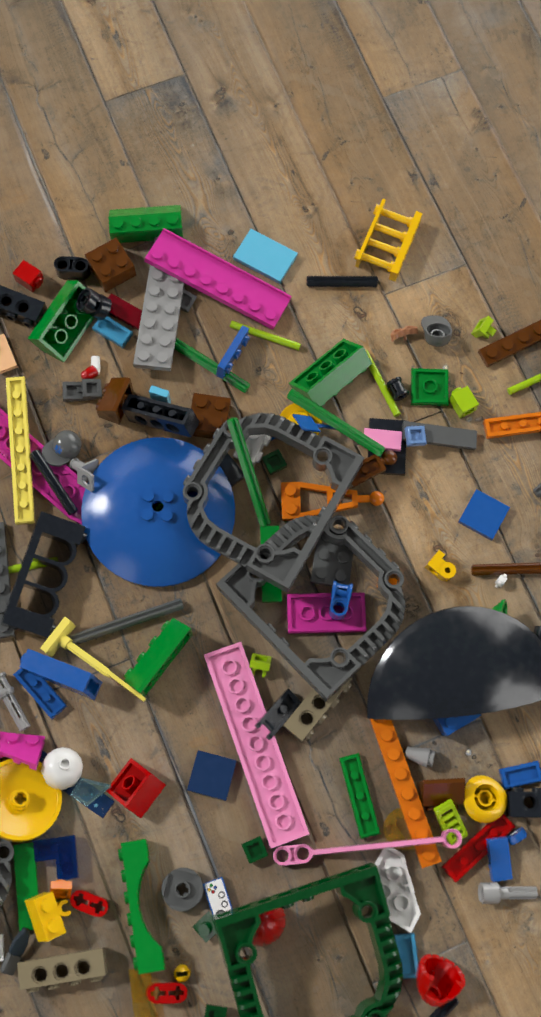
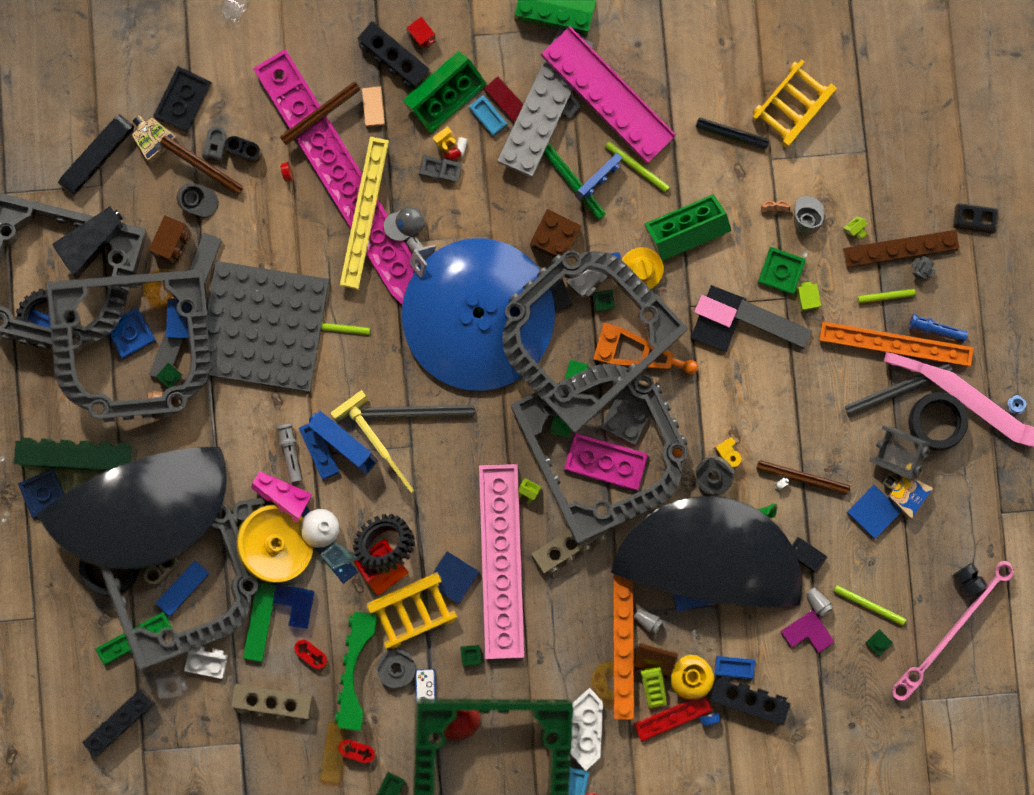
camera: 20 degrees right, 10 degrees up
(15, 952) = (235, 673): piece -> none
(46, 916) = (271, 652): yellow brick -> none
(53, 482) = (387, 255): black axle -> none
(57, 529) = (379, 304): black fence -> none
(61, 889) = (288, 634): orange plate -> none
(72, 265) = (468, 35): black beam -> none
(78, 361) = (445, 139): none -> yellow tile
(93, 304) = (477, 86): black wheel -> none
(110, 264) = (506, 46): reddish brown brick -> none
(113, 399) = (469, 190): reddish brown slope -> none
(143, 775) = (396, 556): none -> black tyre
(158, 657) = (435, 455): green slope -> none
(159, 394) = (513, 203): medium azure tile -> none
(160, 415) = (508, 222): black brick -> none
(161, 816) = (396, 599): none -> yellow fence
(182, 968) = (375, 735): yellow hinge -> none
(205, 927) = (406, 707): dark green plate -> none
(248, 471) = (574, 307): green axle -> none
(265, 256) = (664, 82): medium azure tile -> none
(279, 713) = (531, 541): black hinge -> none
(293, 859) = (504, 666): bright pink piece -> none
(308, 424) = (646, 277): blue piece -> none
(336, 422) = (675, 281): green axle -> none
(340, 597) = (624, 451): blue piece -> none
(359, 796) = (580, 638): green tile -> none
(374, 466) = (698, 335): reddish brown plate -> none
(382, 386) = (735, 254): lime bar -> none
(397, 389) = (748, 263): black bush -> none
(415, 436) = (748, 318): medium blue tile -> none
(431, 581) = (721, 467): none -> dark grey plate
(484, 514) = (788, 415): blue tile -> none
(493, 893) = (670, 761): light grey piece -> none
(499, 859) = (687, 733): blue tile -> none

